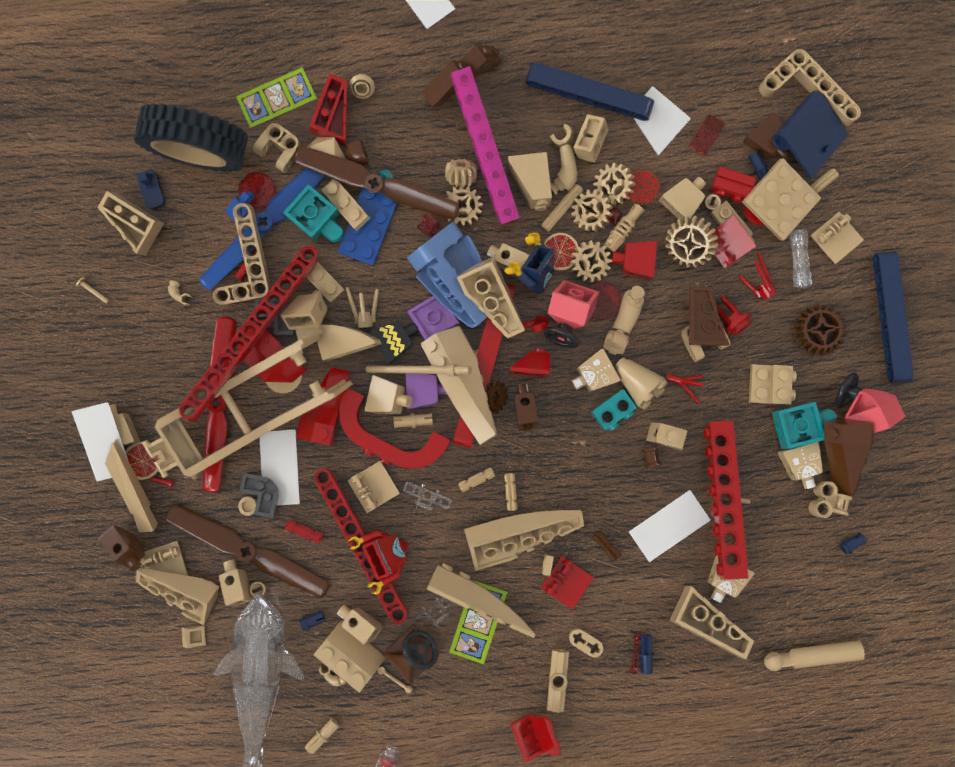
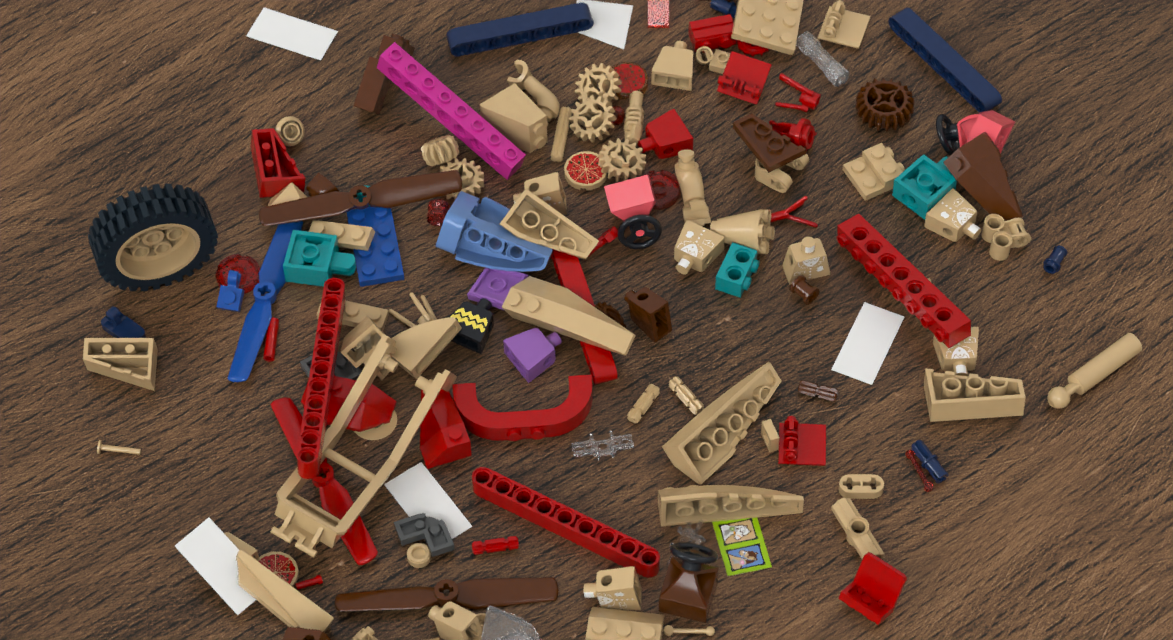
camera: 30 degrees left, 30 degrees down
(174, 292) = (208, 404): tan arm -> none
(250, 260) = (274, 327): tan beam -> none
(266, 140) = (237, 216): tan piece -> none
(276, 97) = (214, 178): sticker -> none
(312, 620) = (561, 621): dark blue pin -> none
(373, 486) = (540, 466): tan hinge -> none
(384, 555) = (595, 505): red torso -> none
(386, 397) = (499, 373): tan torso -> none
(413, 420) = (540, 385): tan pin -> none
(450, 369) = (550, 298): tan bar -> none
(533, 364) = (628, 273): red slope -> none
(537, 268) = (572, 185): dark blue torso -> none
(591, 138) = (548, 61): tan brick -> none
(695, 226) = (699, 75): tan gear -> none

